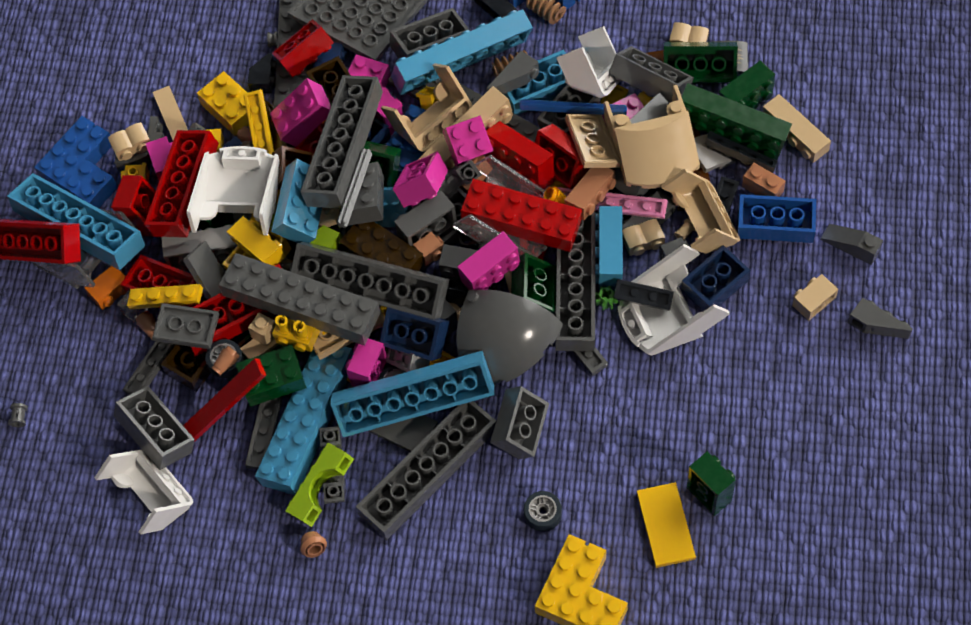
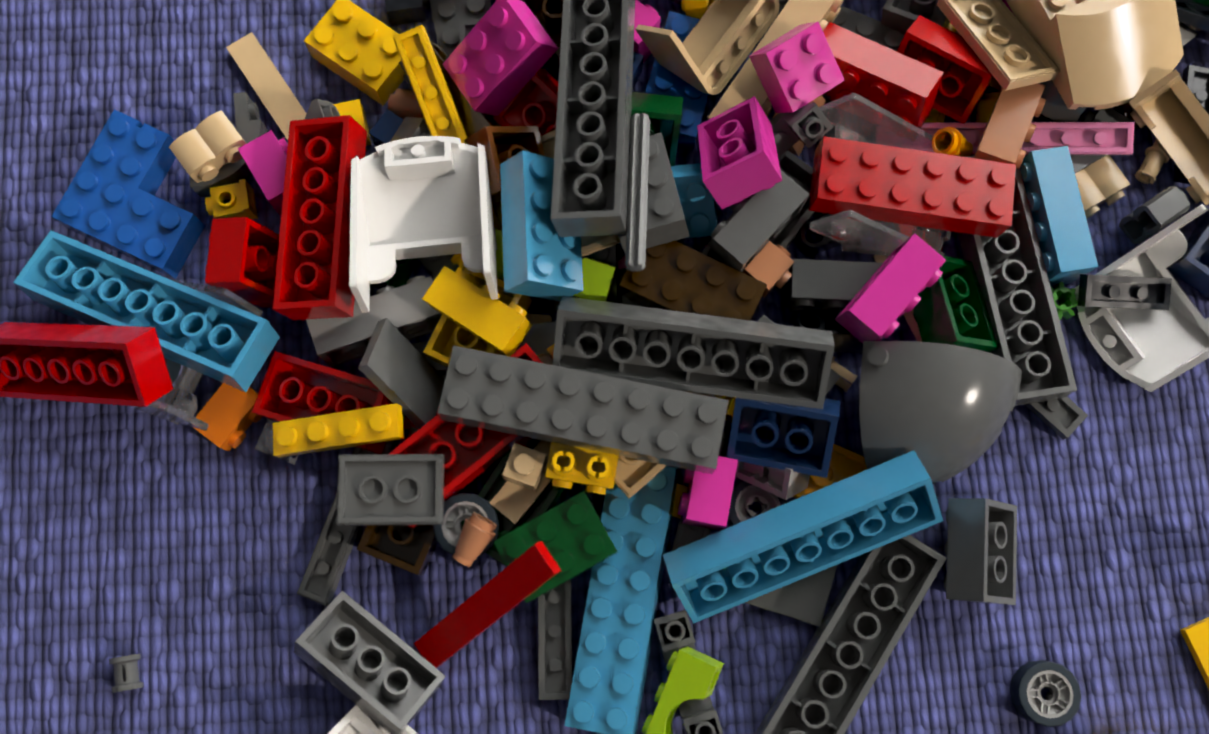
camera: 20 degrees left, 15 degrees up
(146, 322) = (315, 470): nougat cone -> none

